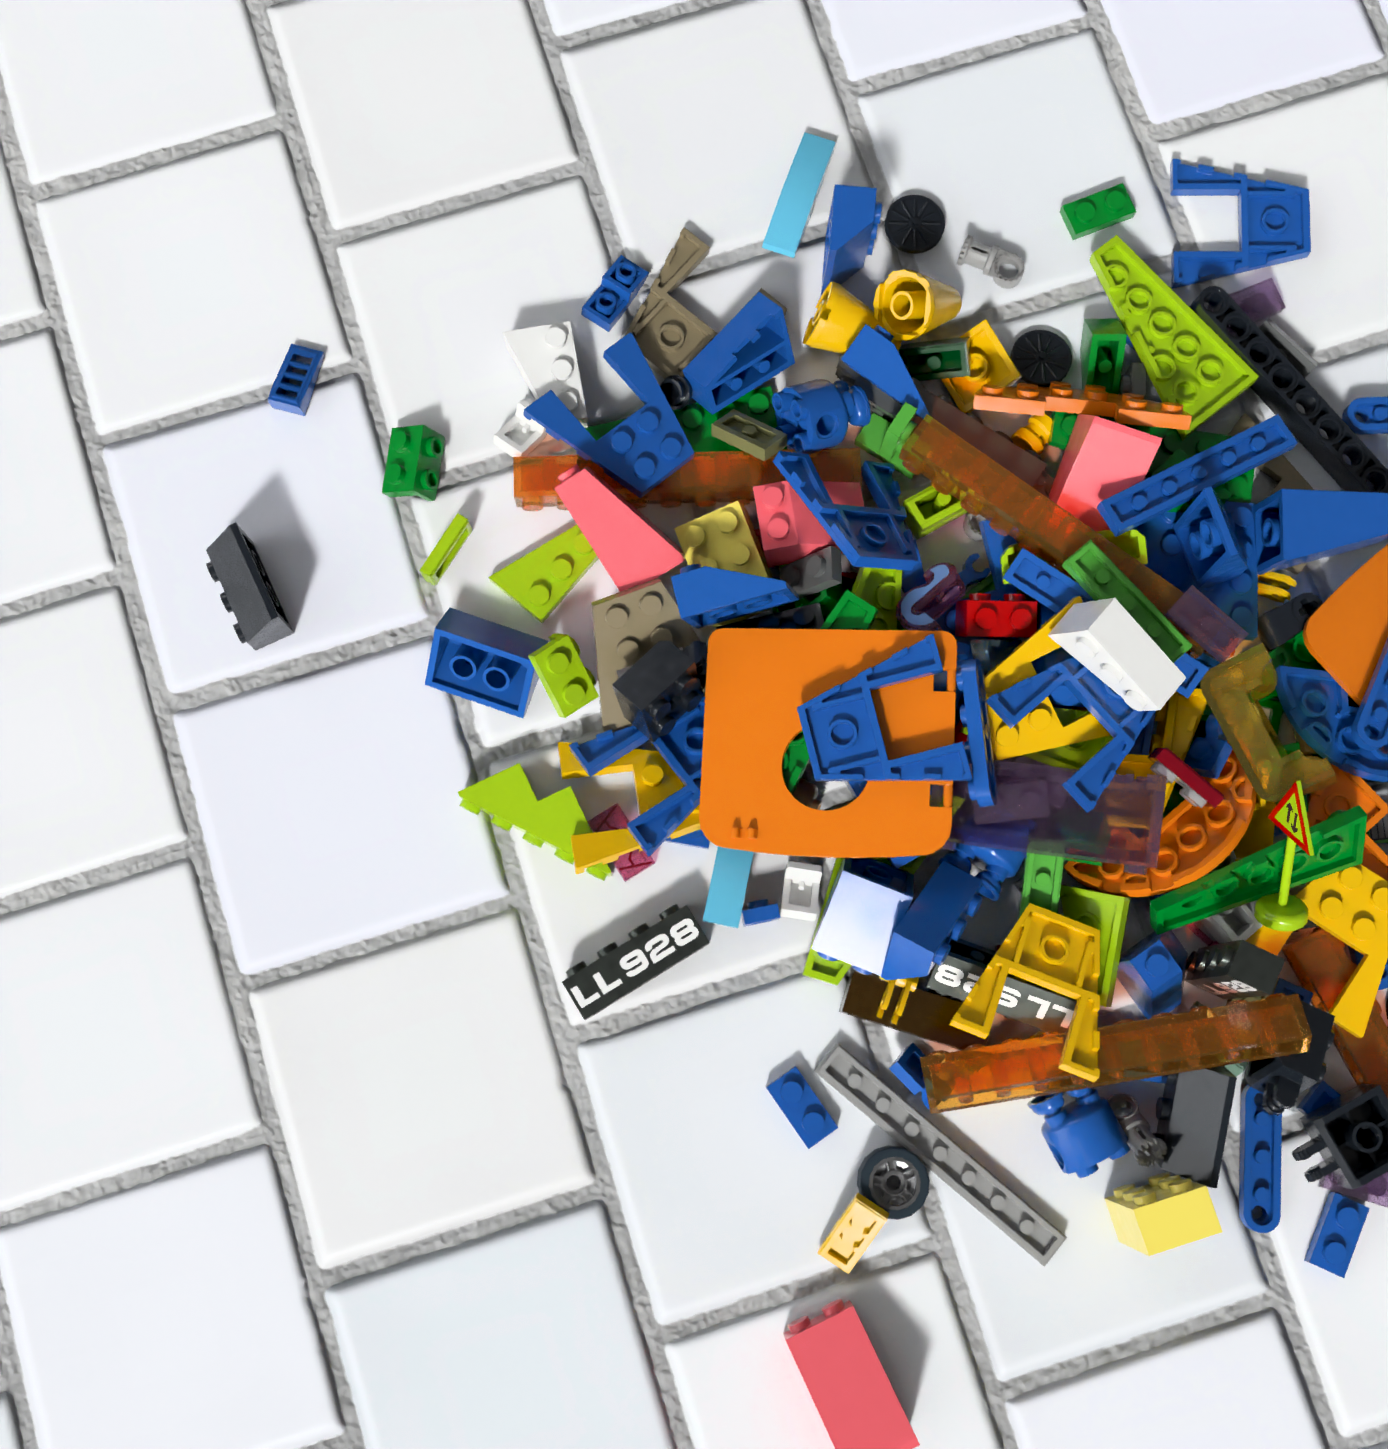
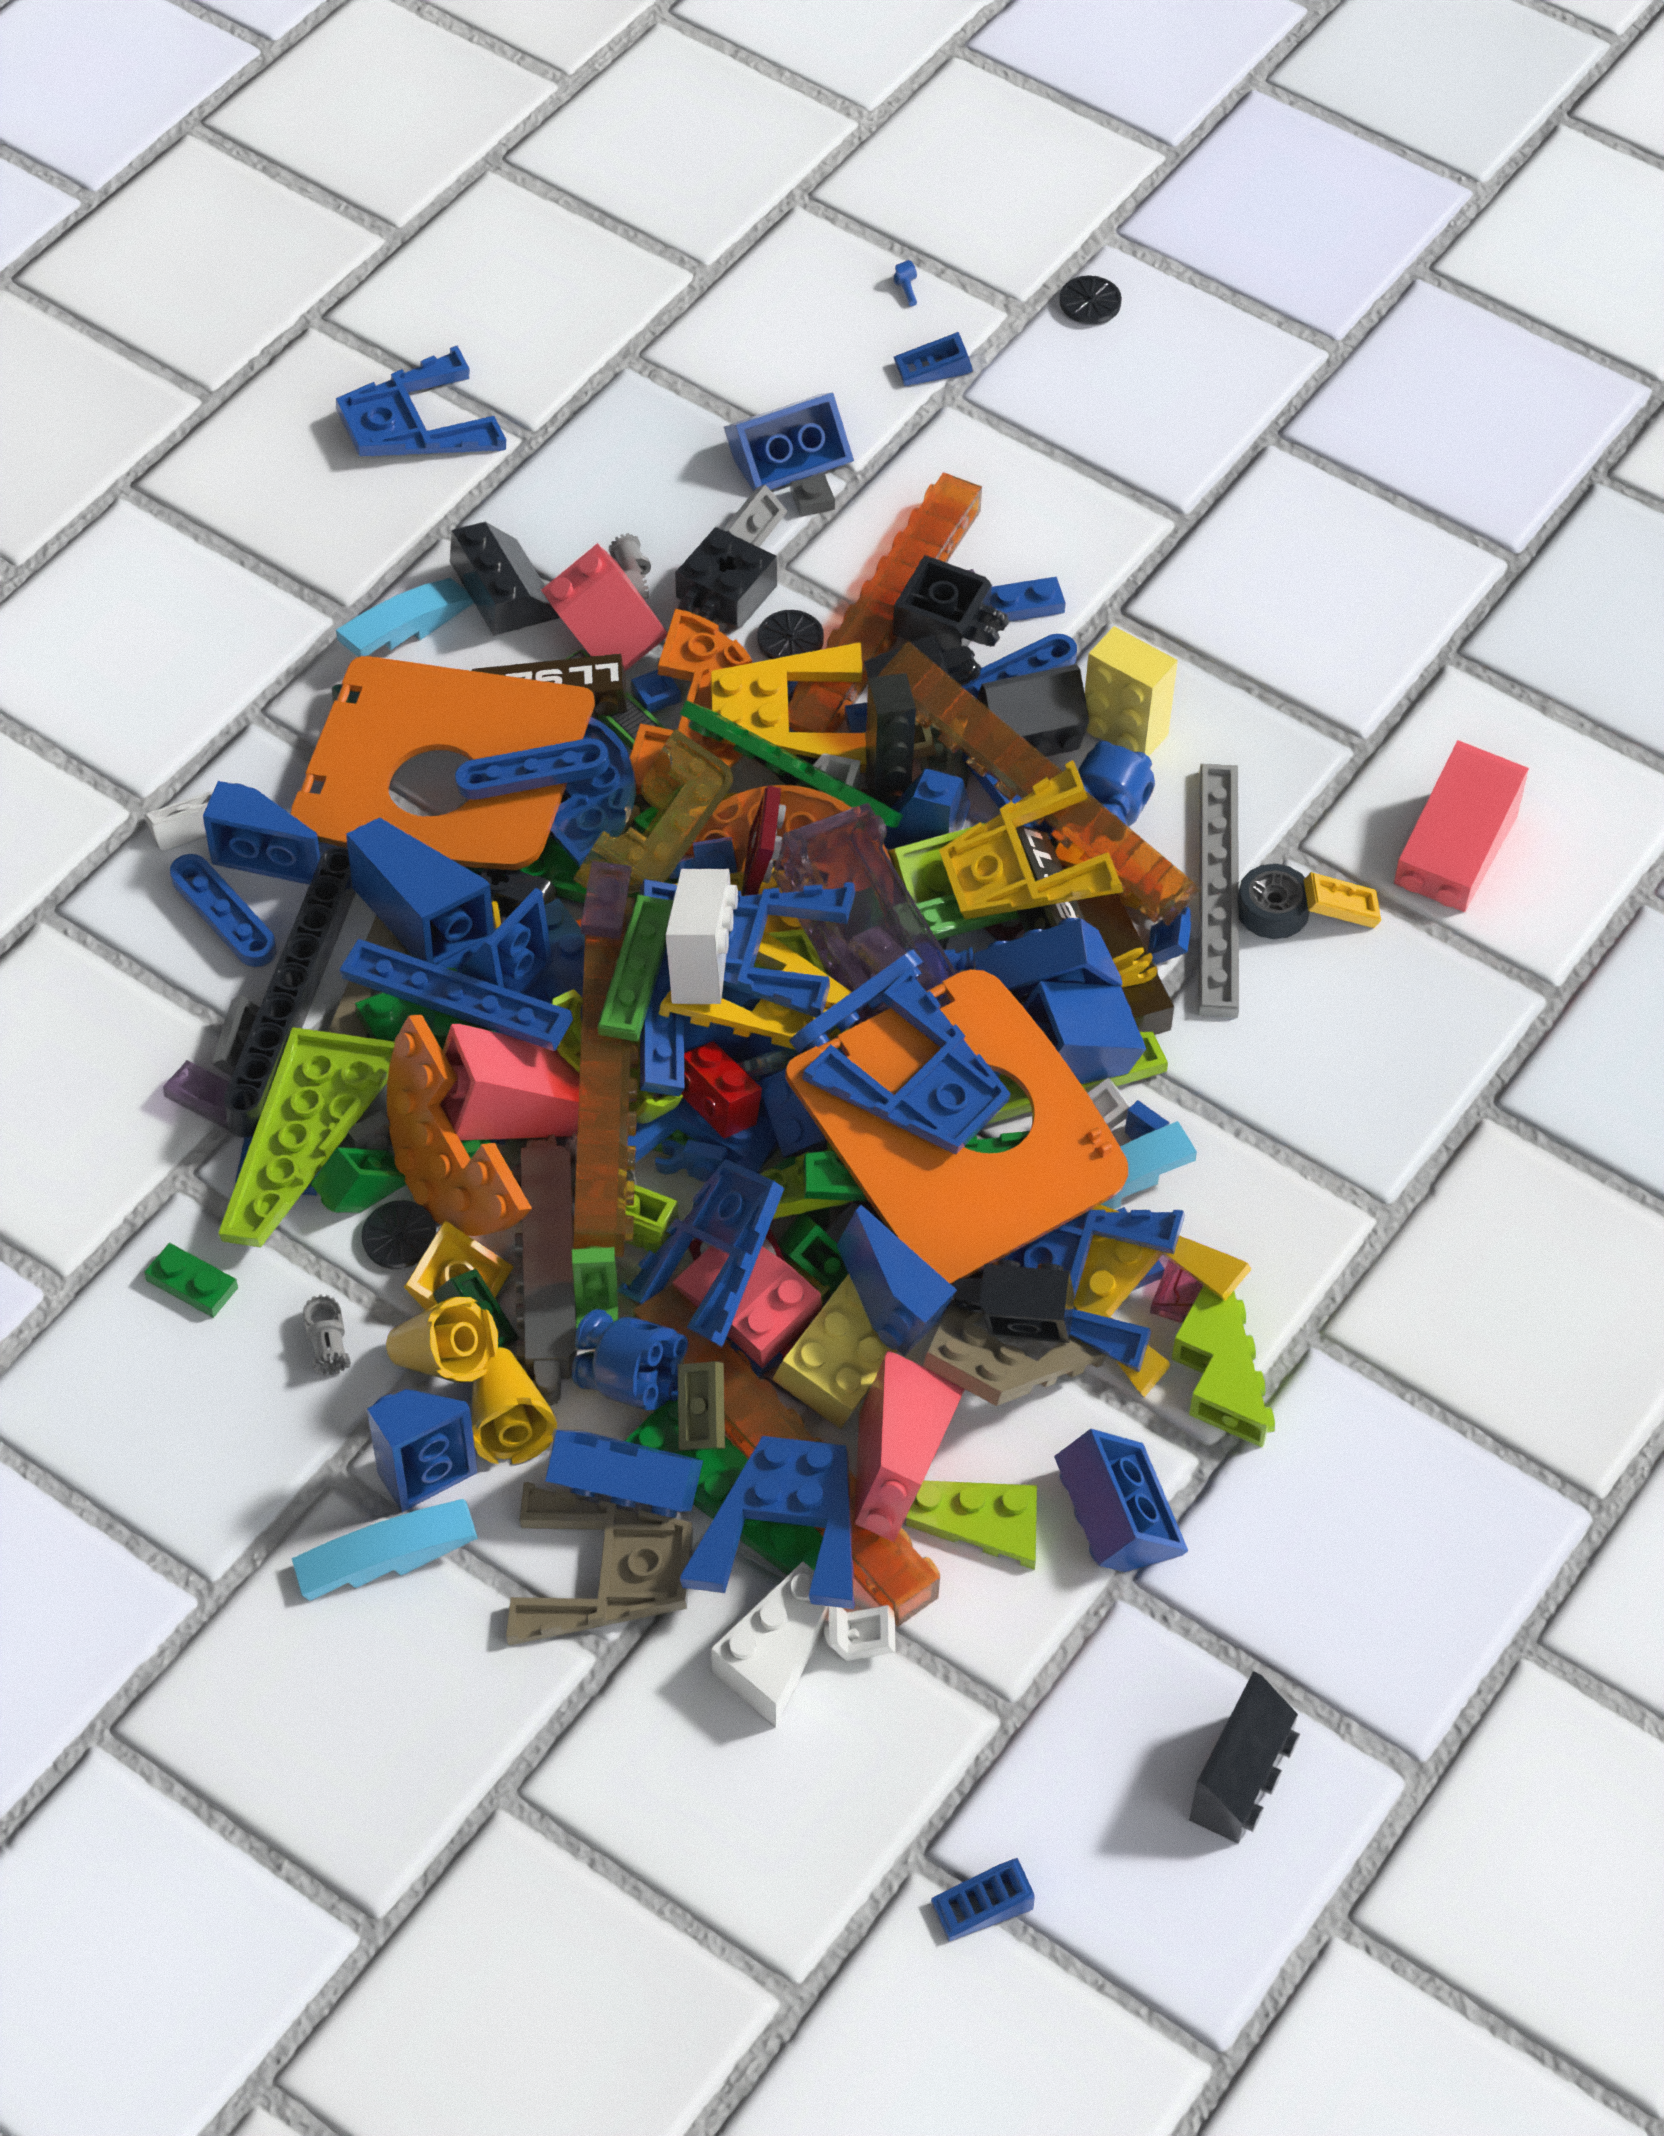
camera: 125 degrees left, 25 degrees down
(413, 462) = (979, 1716): green bracket -> none
(446, 549) = (1042, 1616): lime tile -> none
(563, 674) = (1076, 1408): lime bracket -> none
(615, 293) = (626, 1659): blue slope -> none
(634, 962) = (1277, 1195): pearl dark grey brick -> none
(677, 391) = (700, 1511): black plate -> none
(801, 1107) = (1276, 1004): blue plate -> none
(814, 572) = (801, 1249): dark grey plate -> none
(880, 363) = (538, 1331): blue slope -> none
(914, 224) = (331, 1431): black wheel -> none
(927, 602) = (756, 1146): clear pink animal -> none
(1140, 1140) = (1079, 743): light grey connector -> none
(1270, 224) = (100, 1121): blue wing -> none
(1281, 909) = (805, 736): lime piece -> none

